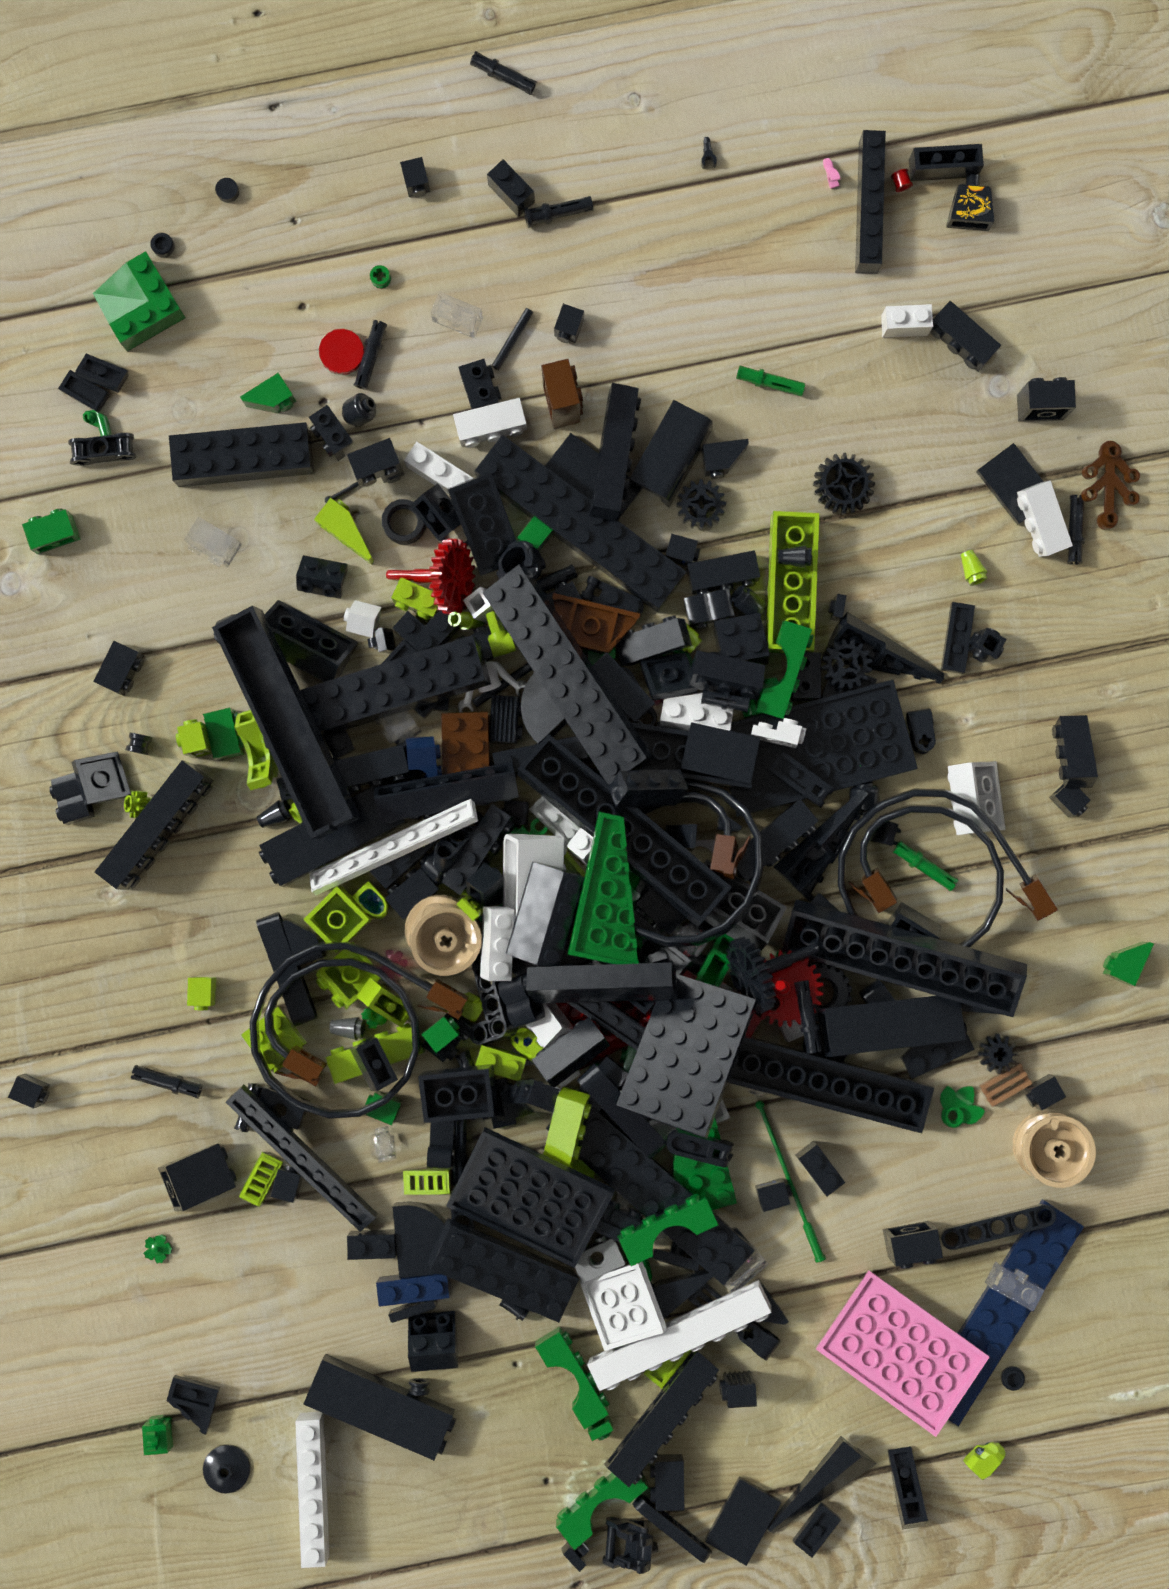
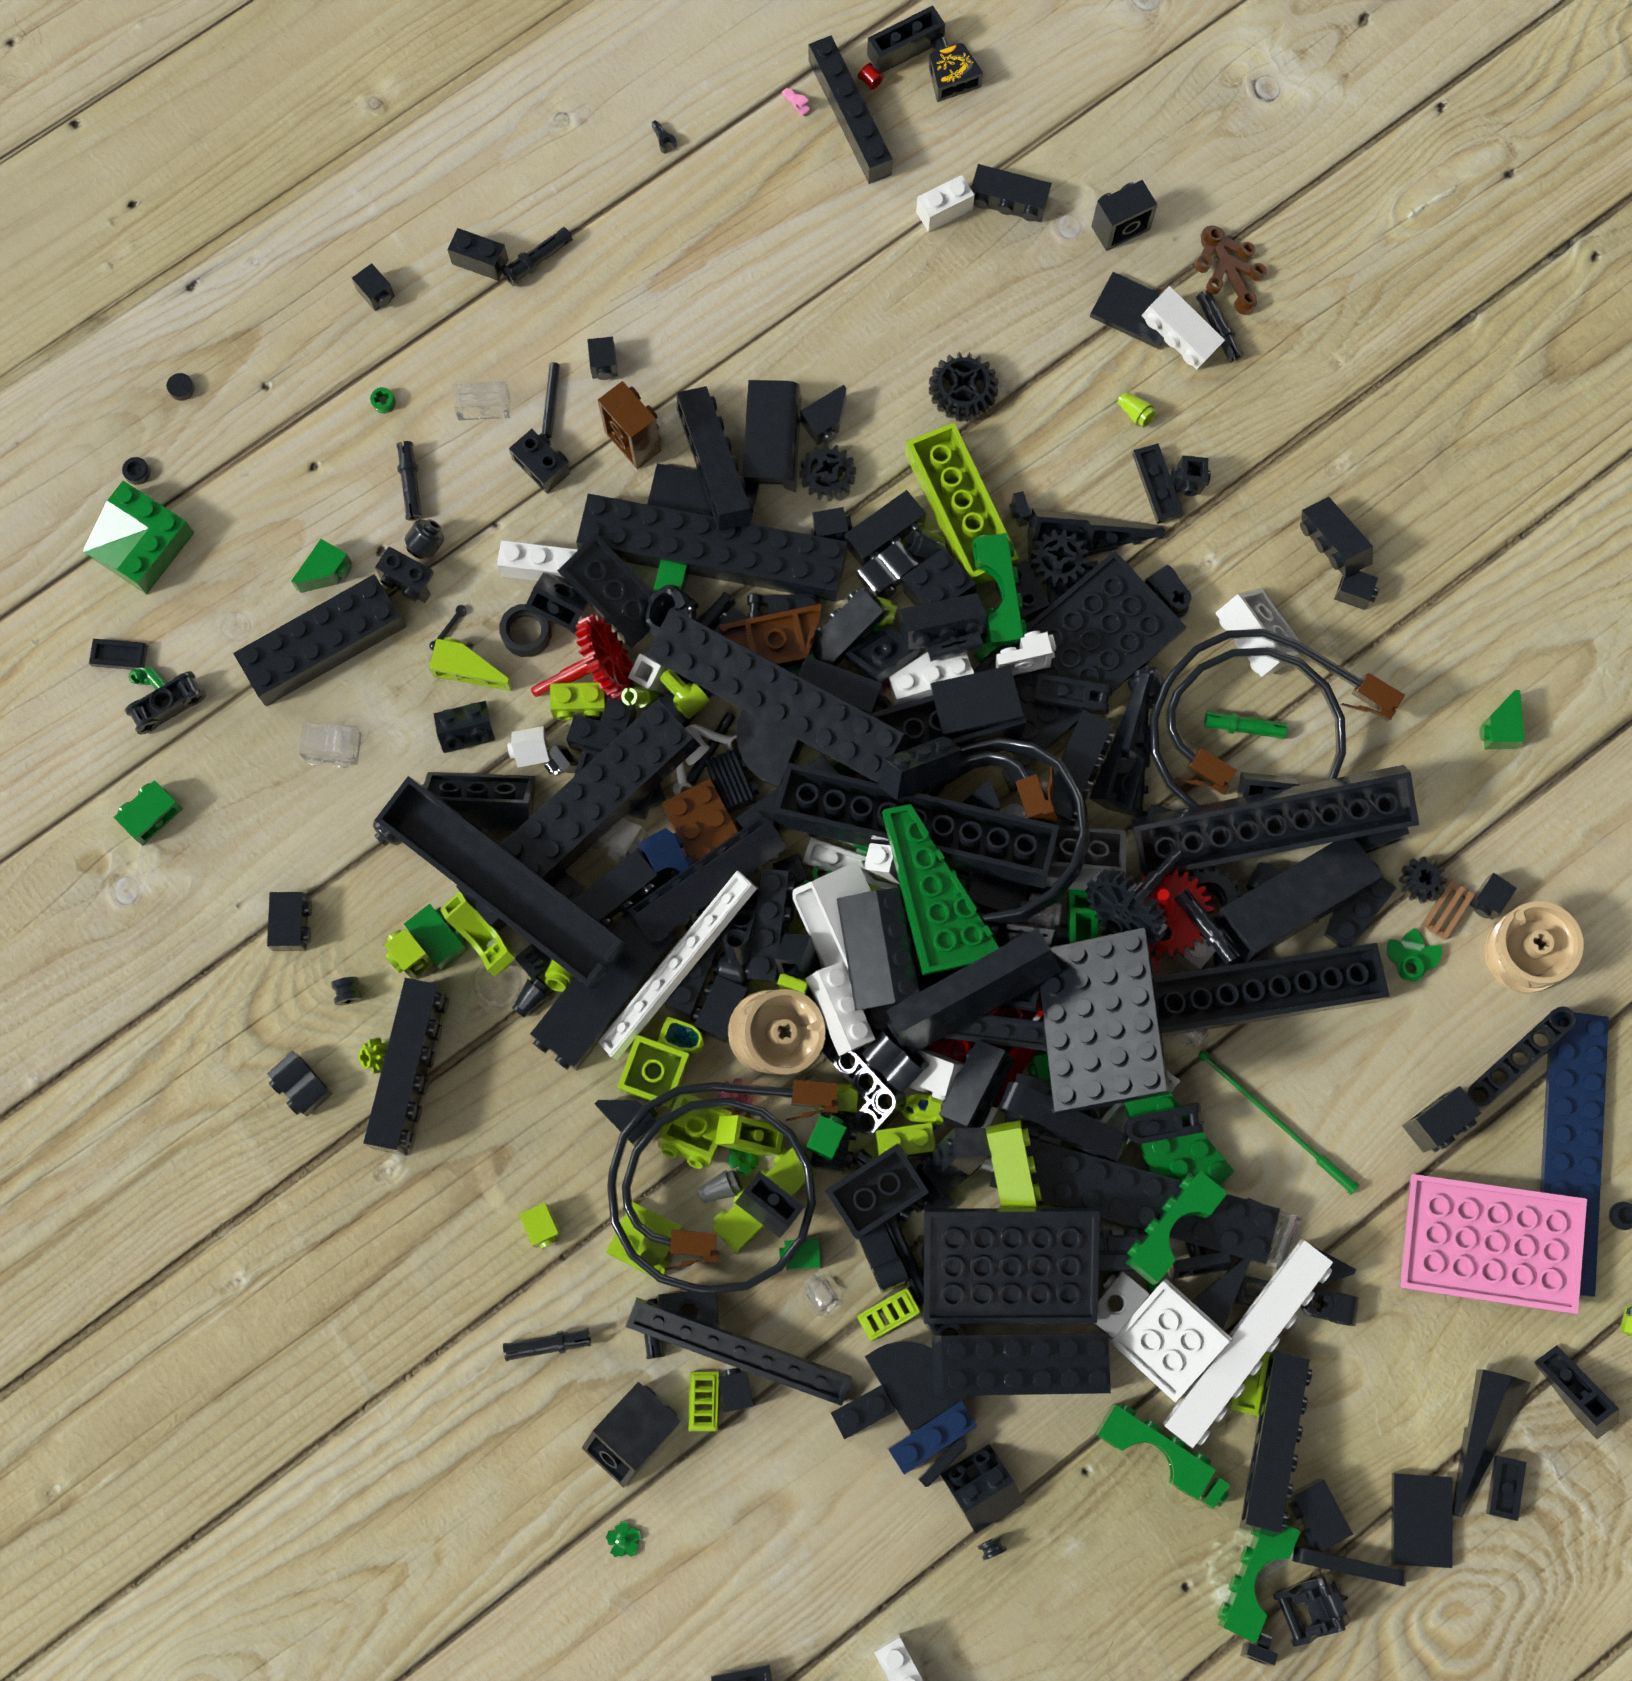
camera: 25 degrees left, 10 degrees down
(29, 1091) = (397, 1430): black brick -> none
(101, 778) = (322, 1046): plate -> none
(102, 373) = (130, 625): black plate -> none
(297, 997) = (604, 1138): black beam -> none
(341, 351) = (377, 491): red tile -> none
(376, 462) = (469, 579): black brick -> none
(380, 1407) = (961, 1593): black brick -> none
(490, 422) = (568, 490): white brick -> none
(503, 73) = (415, 150): black pin -> none
(517, 1311) = (1053, 1405): black pin -> none
(738, 1389) = (1342, 1370): black brick -> none
(769, 380) = (832, 322): green pin -> none
(773, 1194) = (1268, 1142): black brick -> none
(796, 556) = (953, 473): black cone -> none
(820, 1168) = (1302, 1090): black brick -> none
(886, 833) = (1188, 710): black tile -> none
(1014, 1286) = (1572, 1110): clear brick -> none

